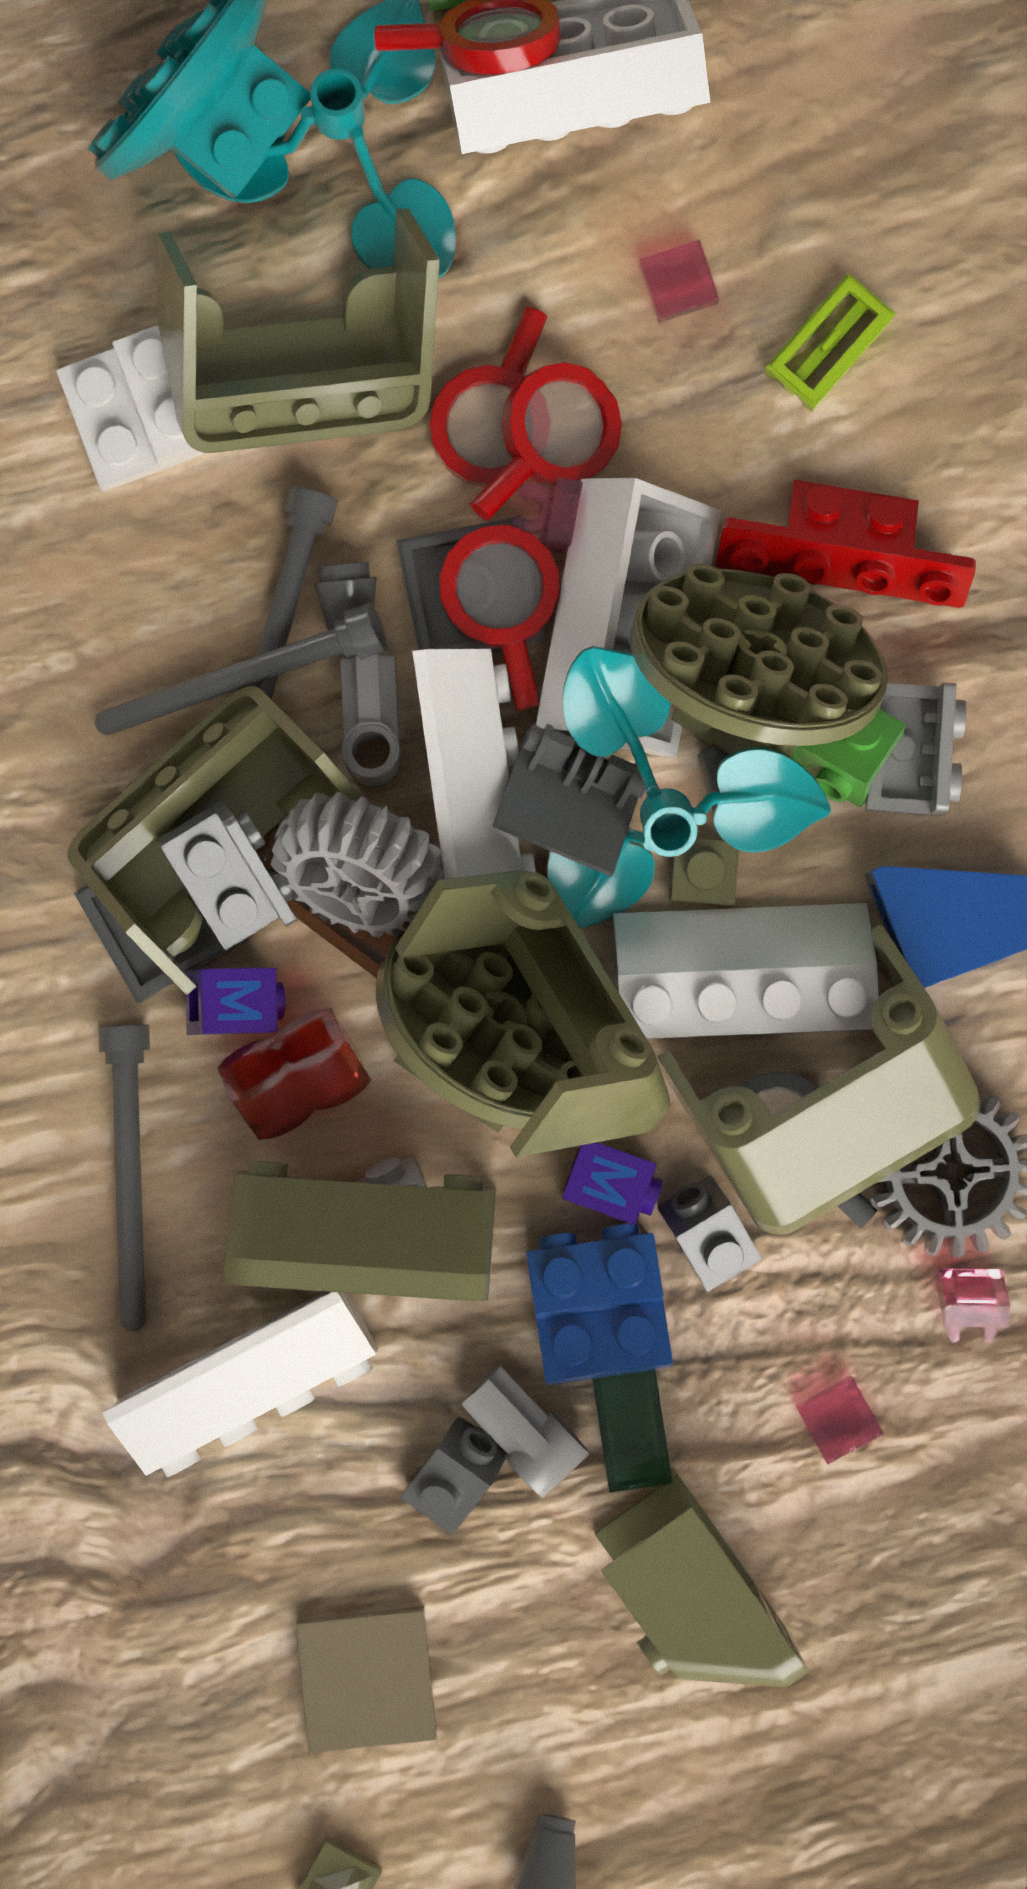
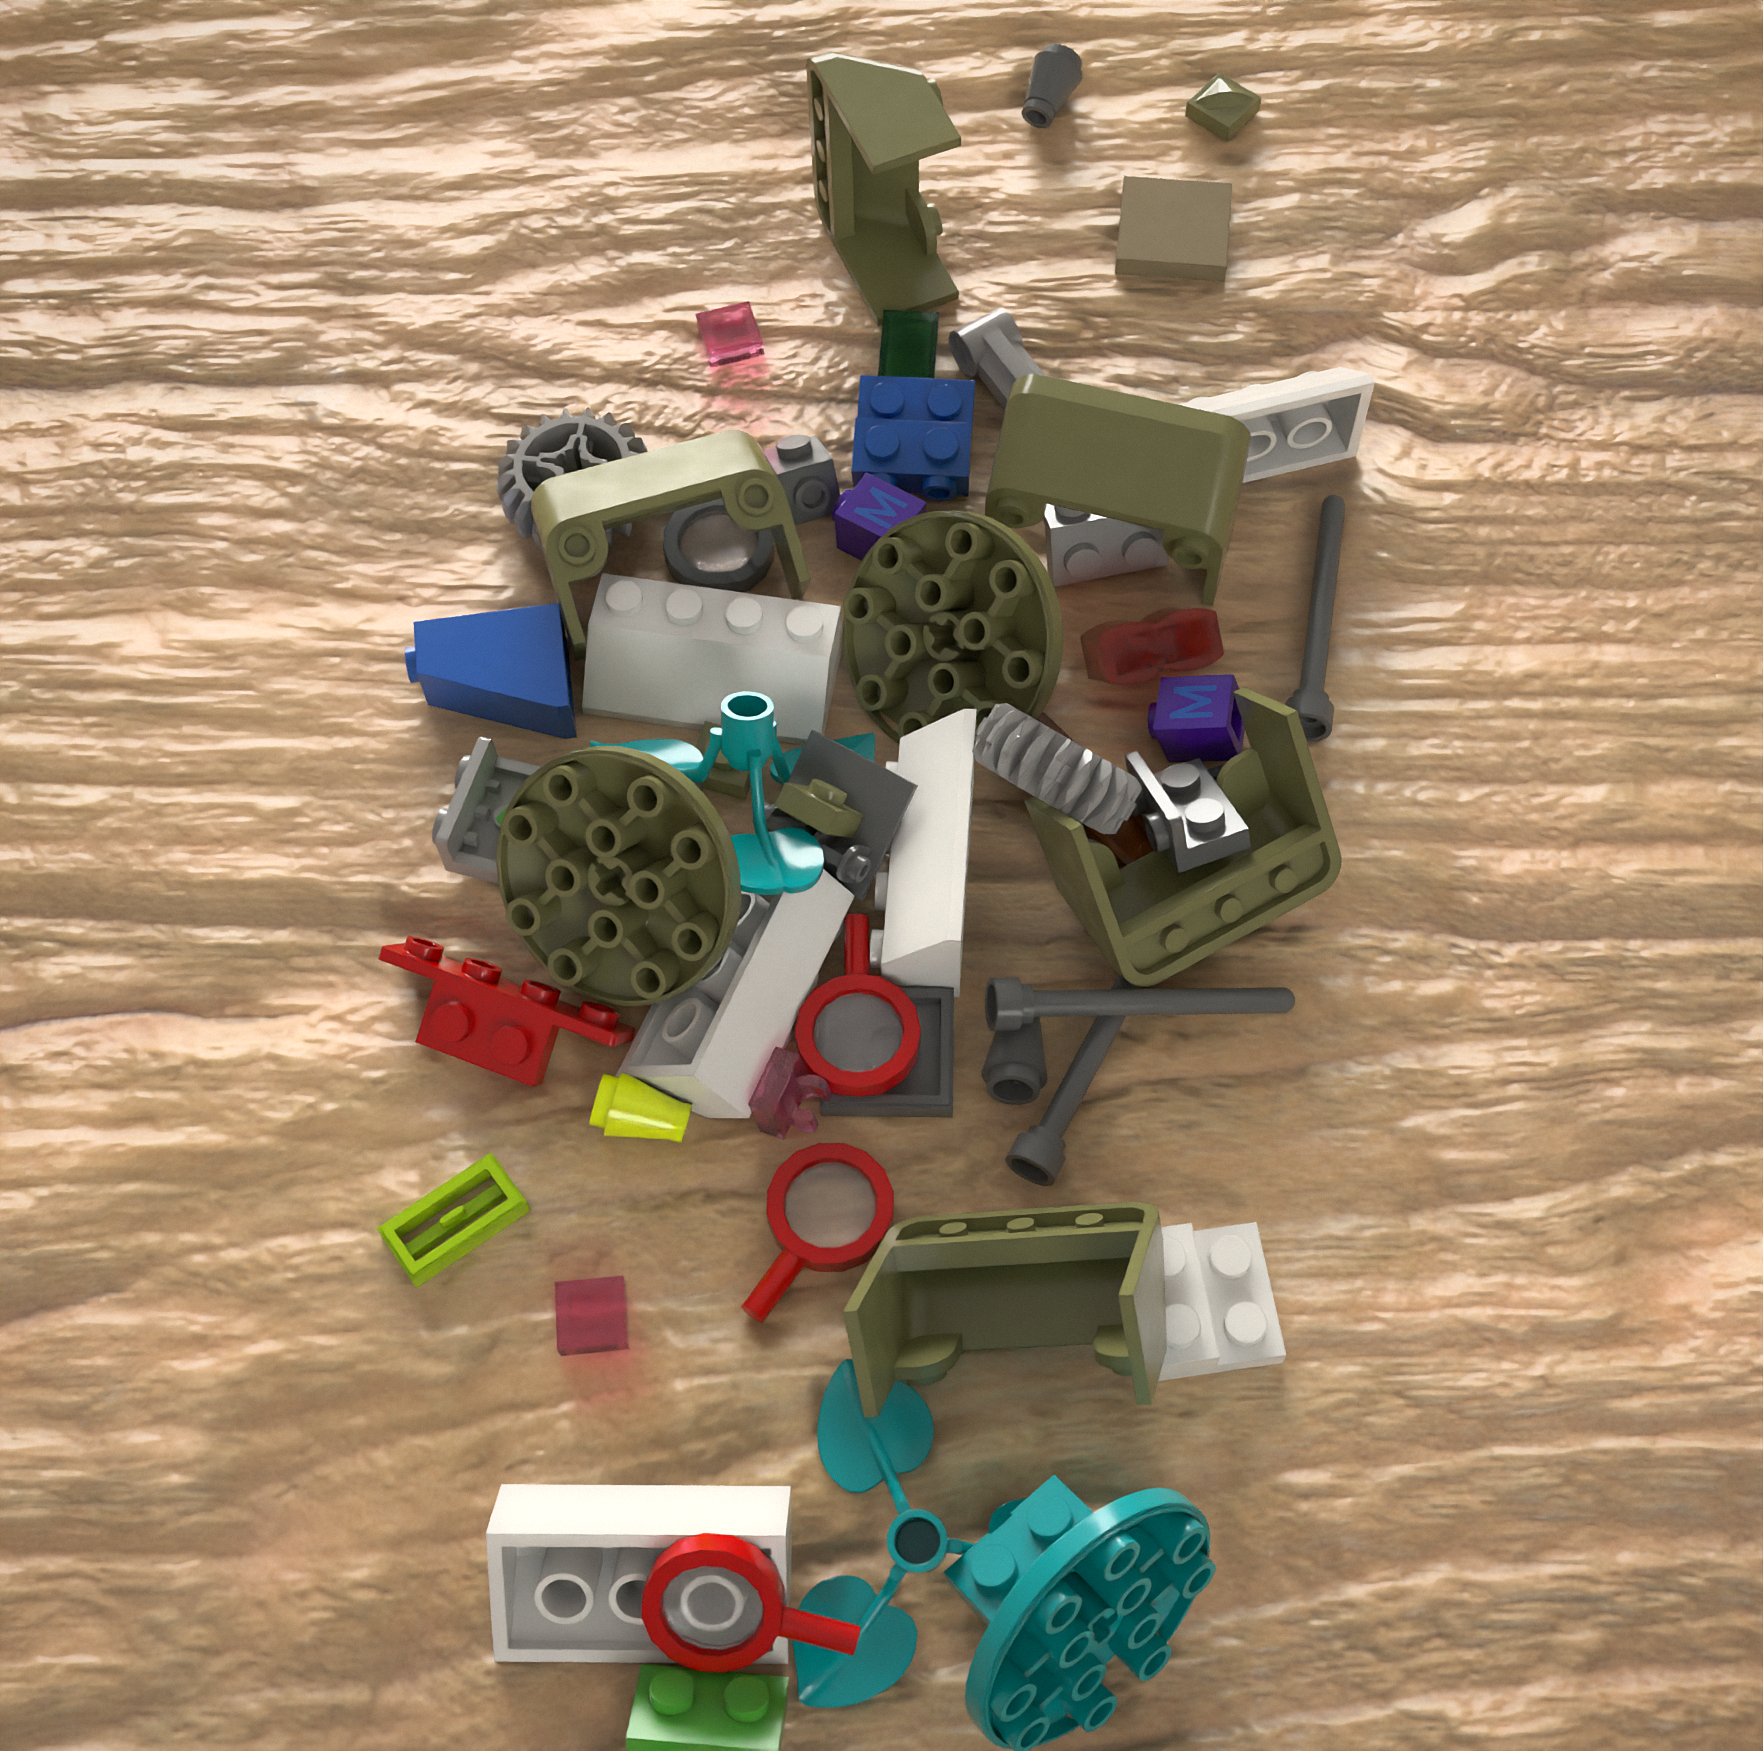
camera: 165 degrees left, 25 degrees down
(370, 713) = (1016, 942): light grey piece -> none
(455, 1475) = (1068, 338): dark grey bracket -> none
(553, 426) = (764, 1175): red piece -> none
(584, 783) = (820, 807): none -> olive plate
(621, 1077) = (863, 601): olive windscreen -> none
(693, 472) = (638, 1110): none -> neon yellow cone
(973, 1300) = (586, 383): clear pink tile -> none

